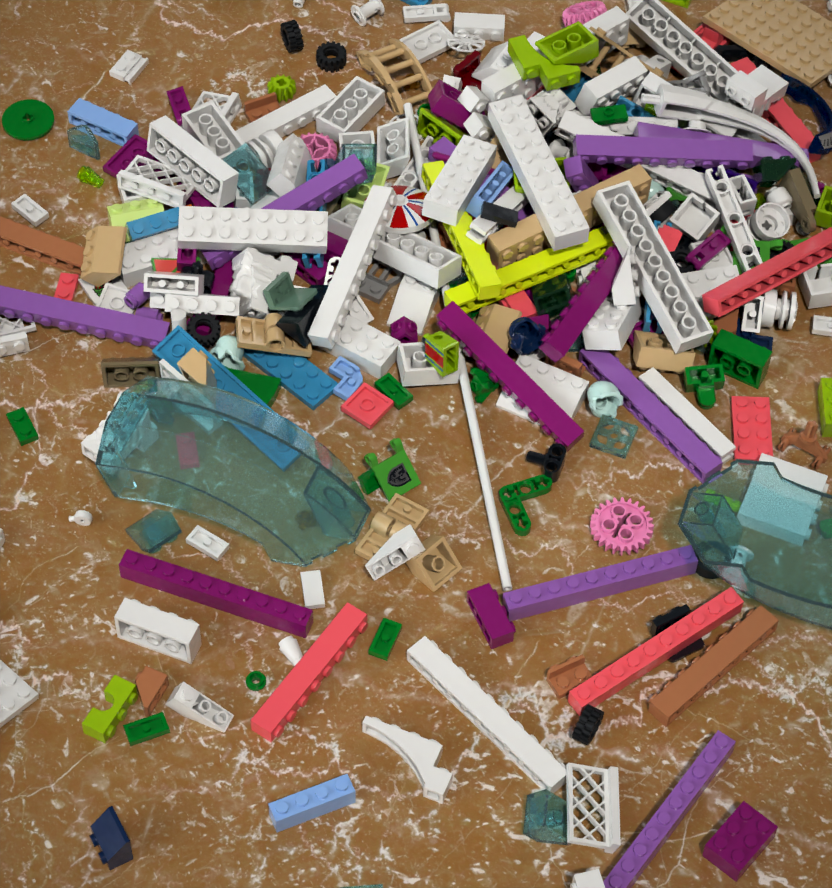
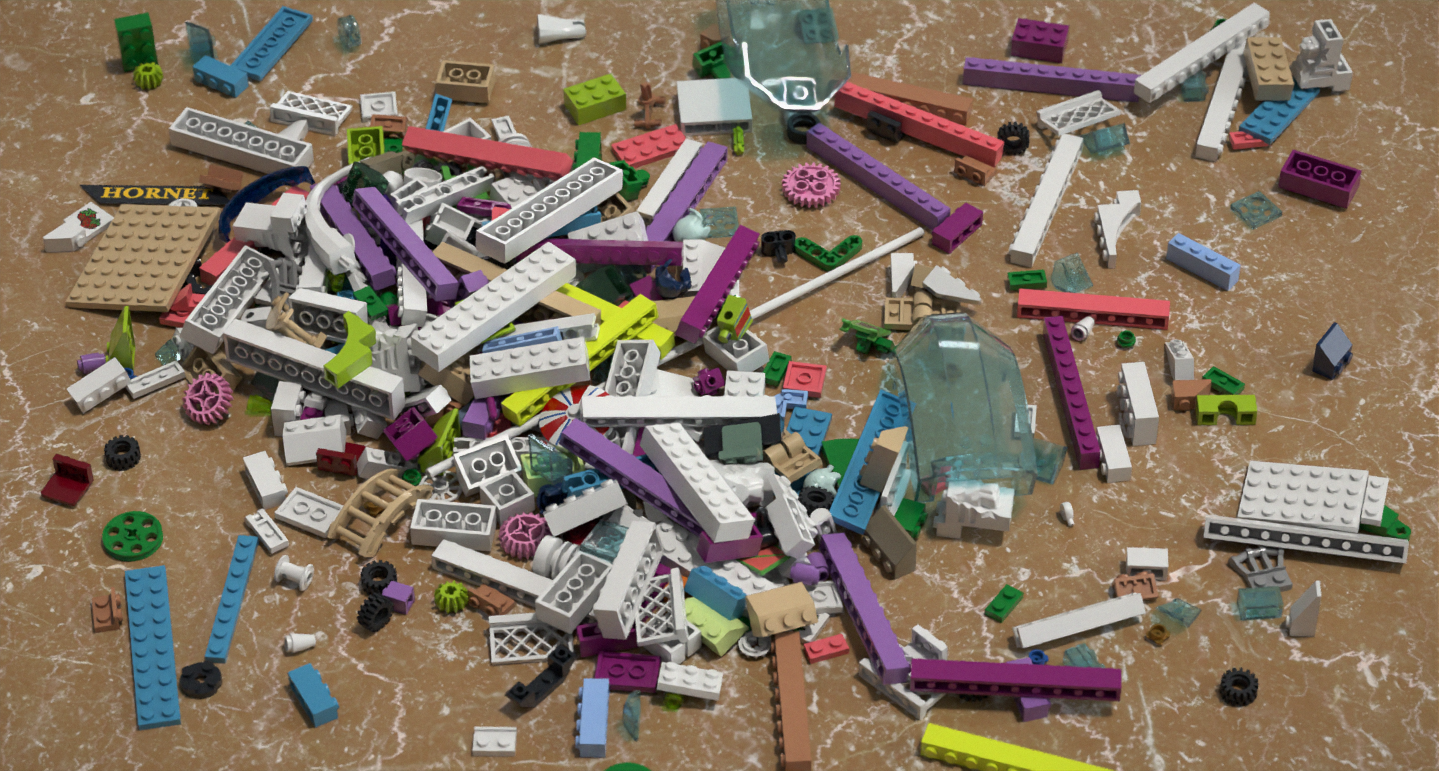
camera: 115 degrees left, 10 degrees down
(30, 210) = (749, 721): white plate -> none
(90, 186) = (690, 680): none -> white plate
(117, 585) = (1114, 454): none -> white brick
(154, 99) = (545, 683): none -> black slope
(179, 103) = (528, 664): magenta plate -> none
(302, 59) = (401, 596): none -> medium lavender brick
(312, 589) = (1020, 339): white tile -> none
(366, 680) = (1070, 274): none -> clear light blue slope
(461, 540) = (901, 272): none -> white slope
(465, 43) = (302, 472): white wheel -> none
(473, 99) = (406, 407): white brick -> none
(499, 214) = (563, 316): black tile -> none
(570, 45) = (318, 328): lime slope -> none
(624, 285) = (578, 218): white slope -> none

